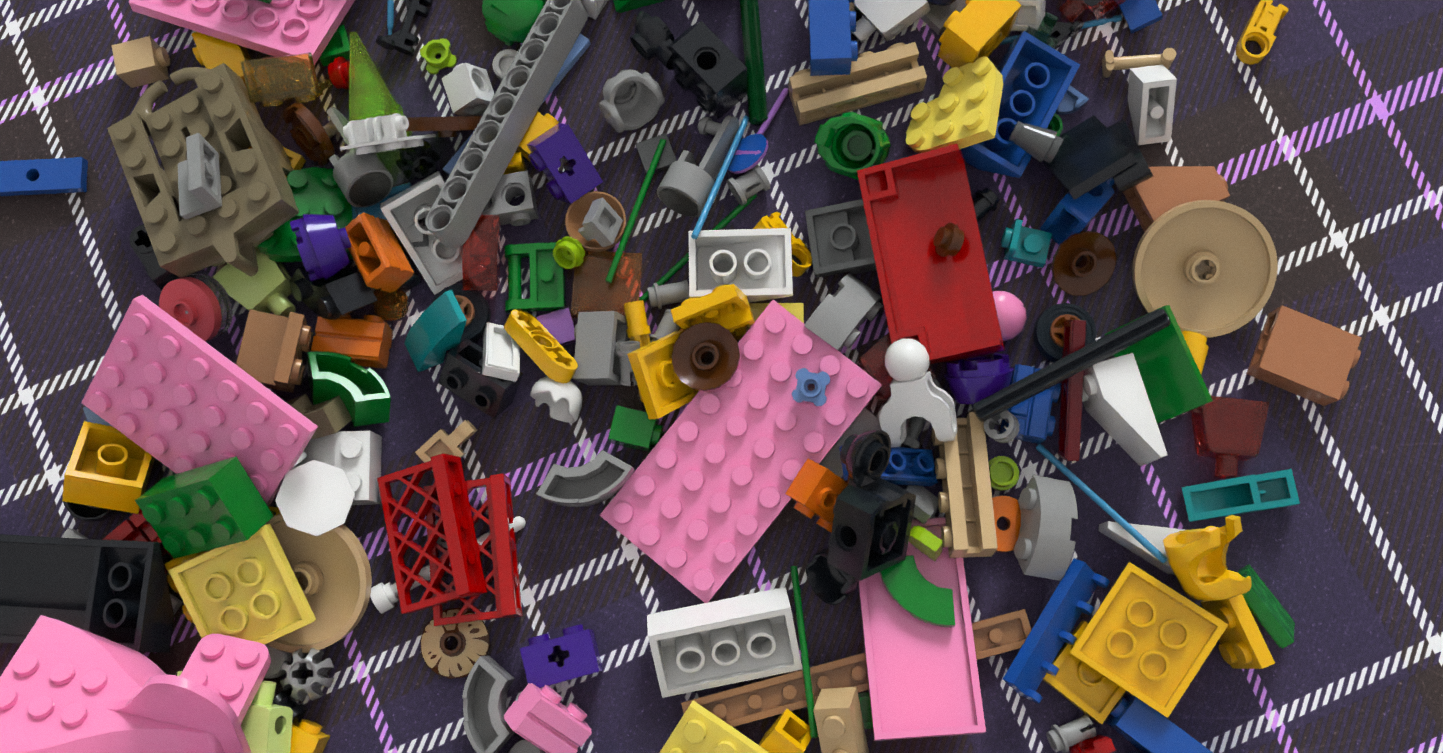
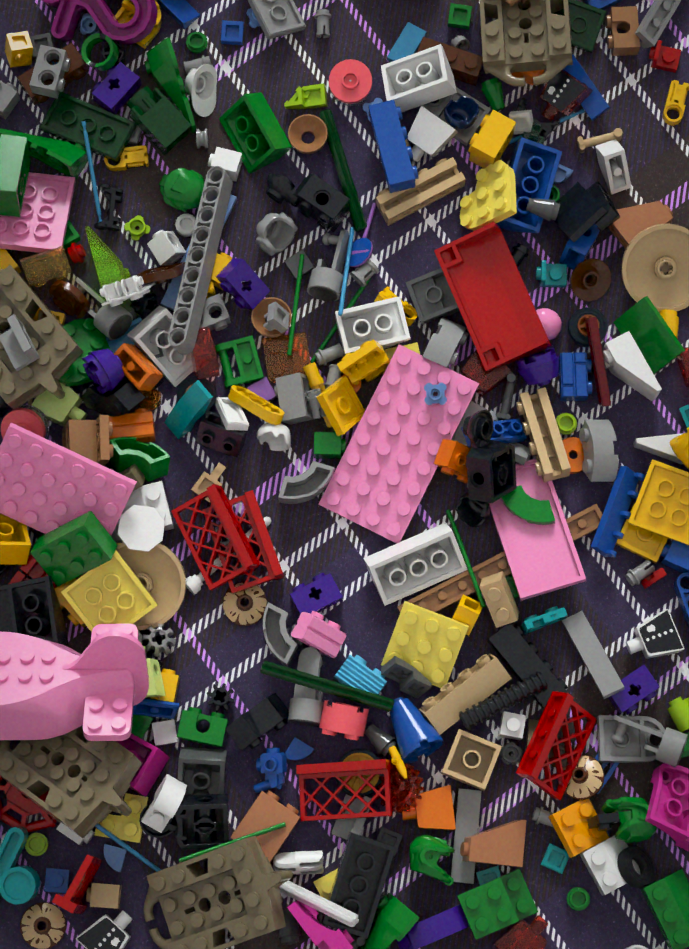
camera: 20 degrees left, 0 degrees up
(568, 252) = (259, 341): lime plate -> none
(695, 345) = (362, 378): reddish brown dish -> none
(852, 143) = (427, 233): green helmet -> none
(915, 394) = (500, 384): white piece -> none
(926, 542) = (527, 475): lime tile -> none
(948, 240) = (501, 283): reddish brown plate -> none
(1011, 431) = (552, 391): light grey bush -> none
(1071, 364) = (592, 346): black axle -> none
(1121, 521) = (635, 431): dark azure piece -> none

